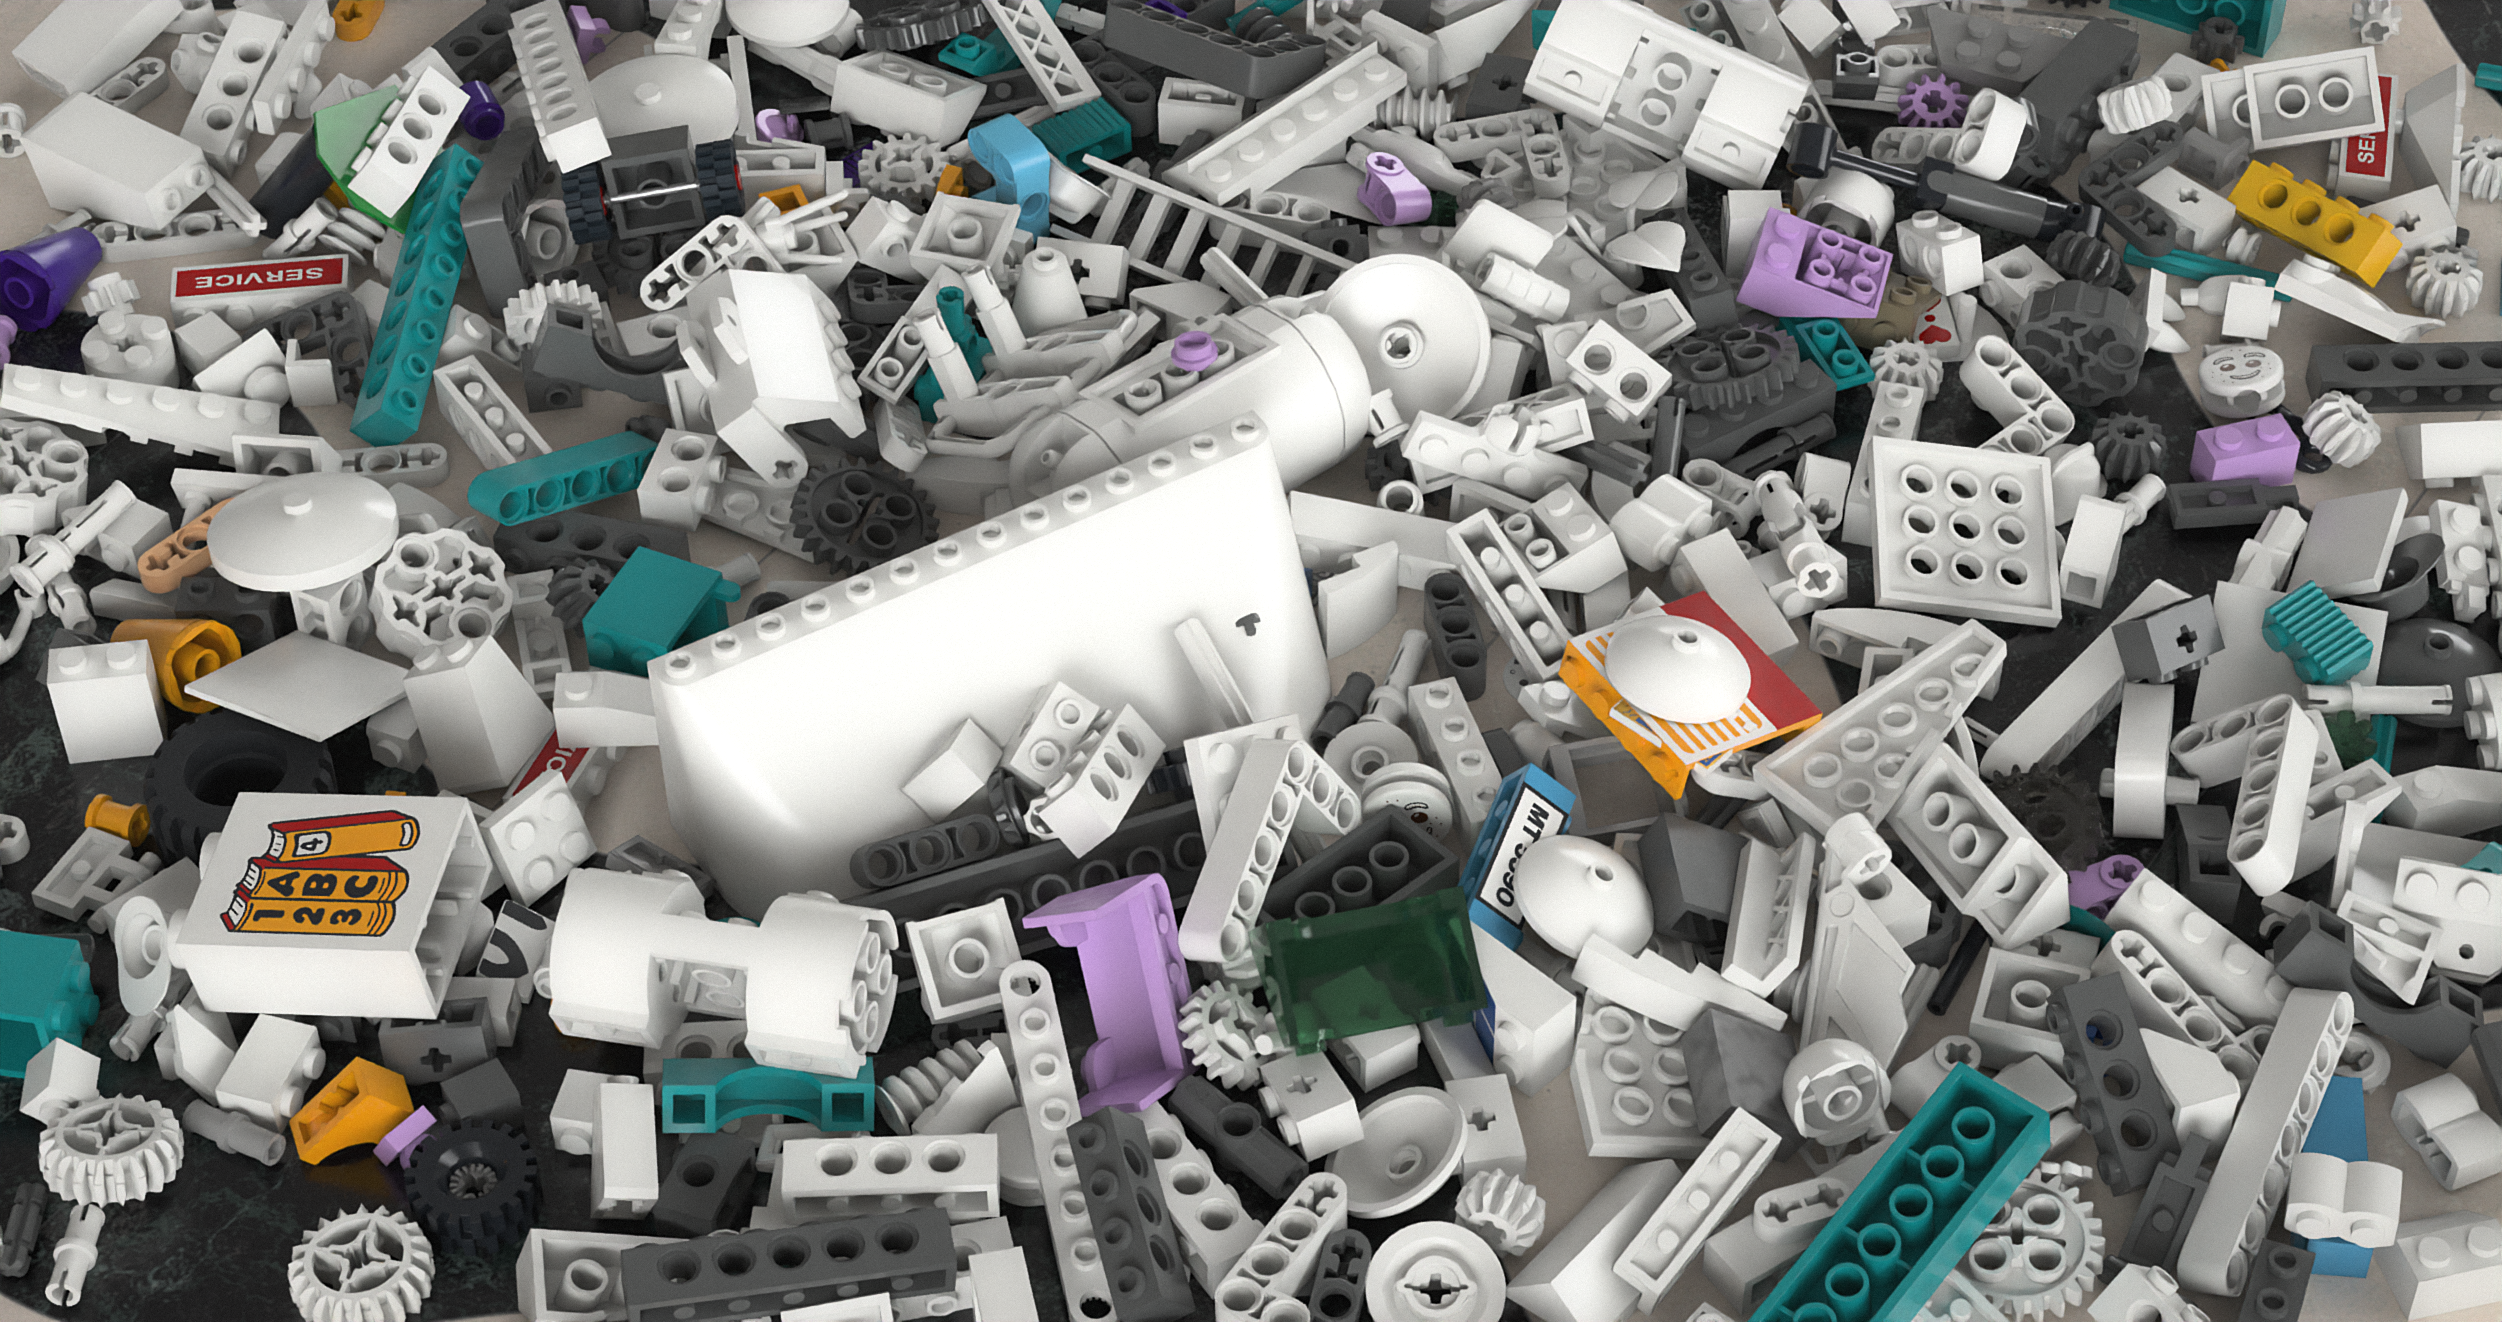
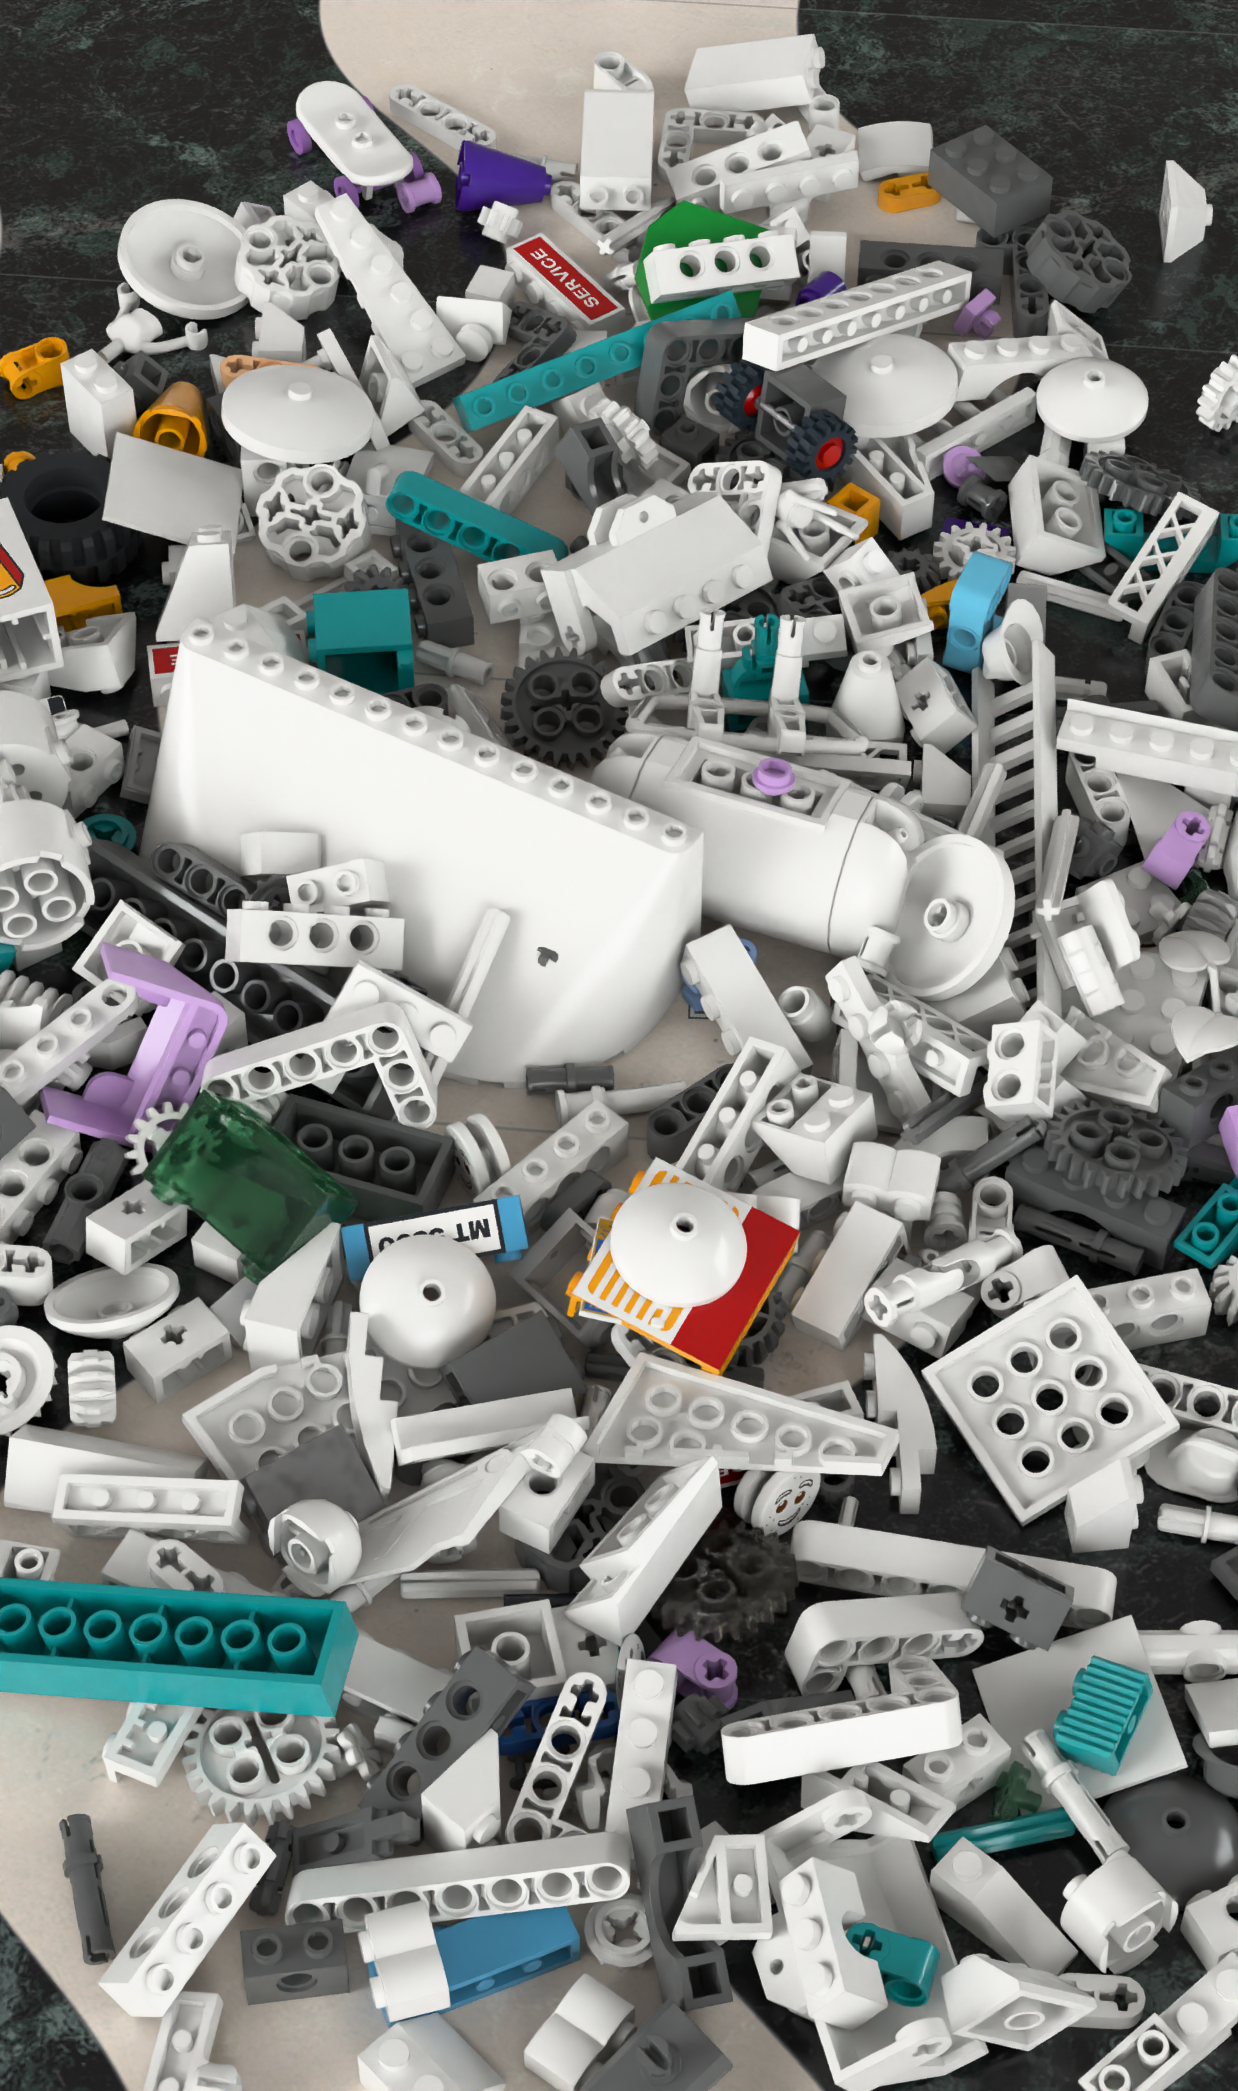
camera: 60 degrees right, 5 degrees up
(58, 551) = (224, 317): white pin -> none
(65, 597) = (214, 342): white pin -> none
(131, 350) = (443, 259): white brick -> none
(309, 380) = (497, 348): white panel -> none
(537, 837) = (120, 681): white plate -> none
(545, 910) = (66, 723): none -> white bush
(836, 182) = (916, 530): white bracket -> none
(1087, 129) = (1099, 641): teal brick -> none
(1358, 601) = (680, 1034): white slope -> none
(1367, 748) = (523, 1115): white dish -> none
(1371, 246) = (1057, 865): none -> white axle
(1919, 1079) = (412, 1627): white piece -> none
(2279, 911) = (763, 1811): white tile -> none

